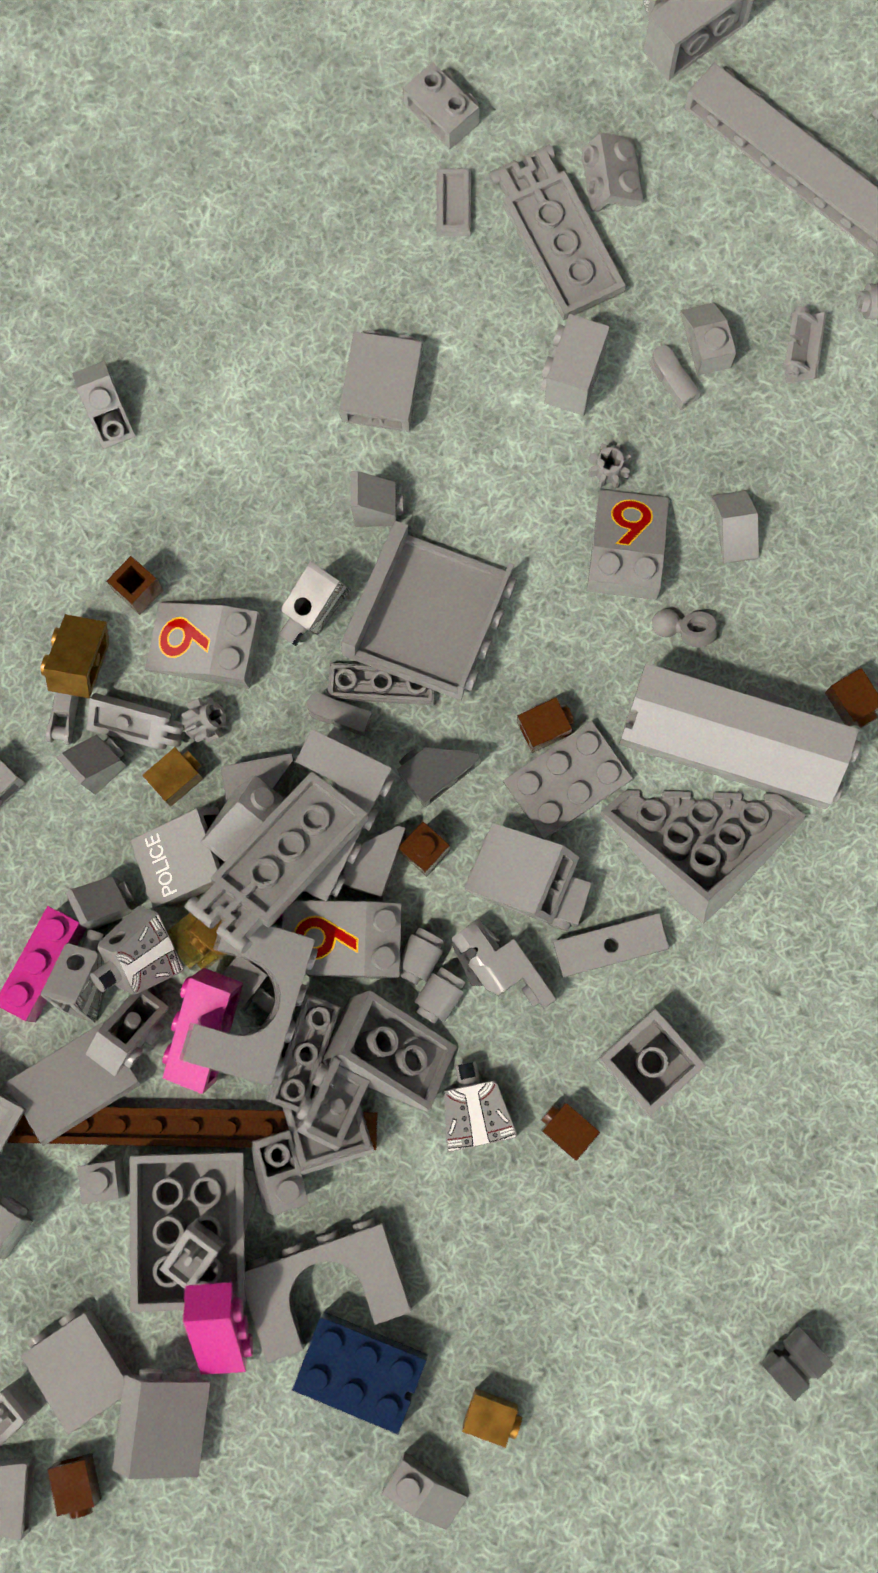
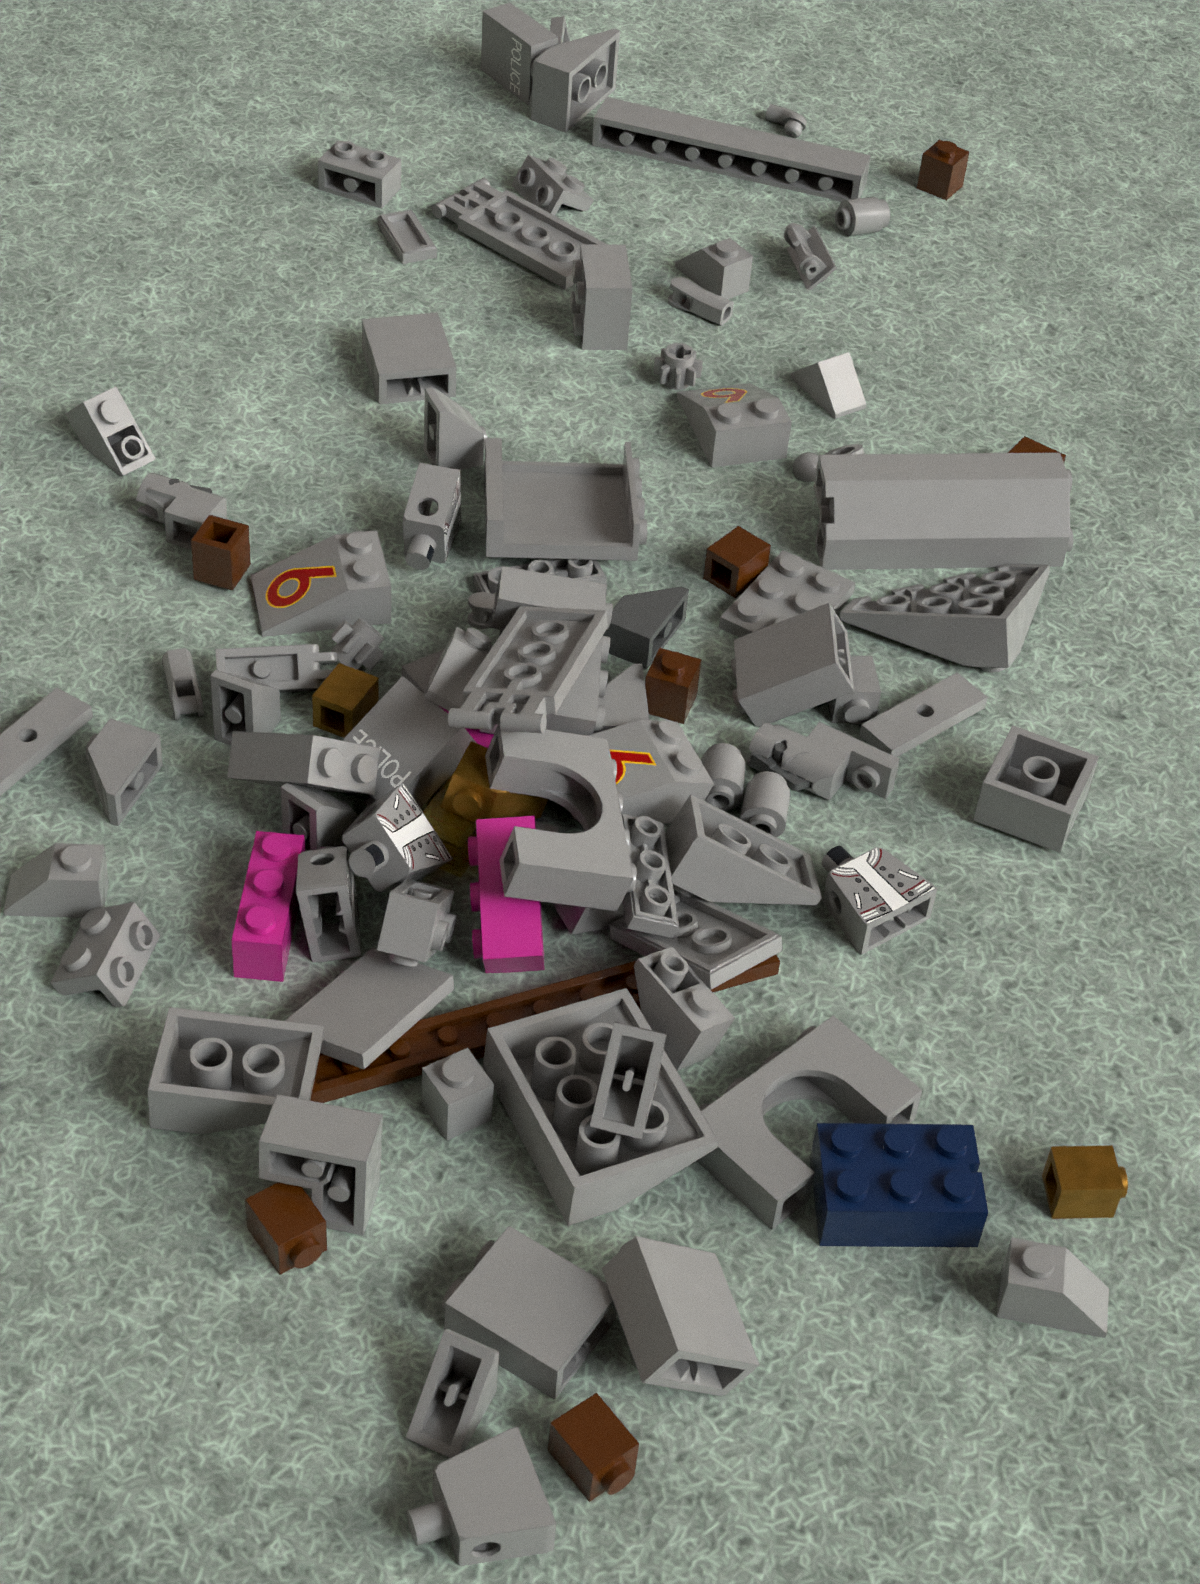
camera: 35 degrees left, 35 degrees down
(75, 656) = (179, 621): pearl gold brick -> none
(100, 858) = (304, 761): none -> light grey brick
(133, 522) = (179, 506): none -> light grey plate
(217, 1328) = (698, 1164): dark pink brick -> none
(332, 1105) = (707, 901): light grey bracket -> none
(568, 1129) = (987, 880): reddish brown brick -> none

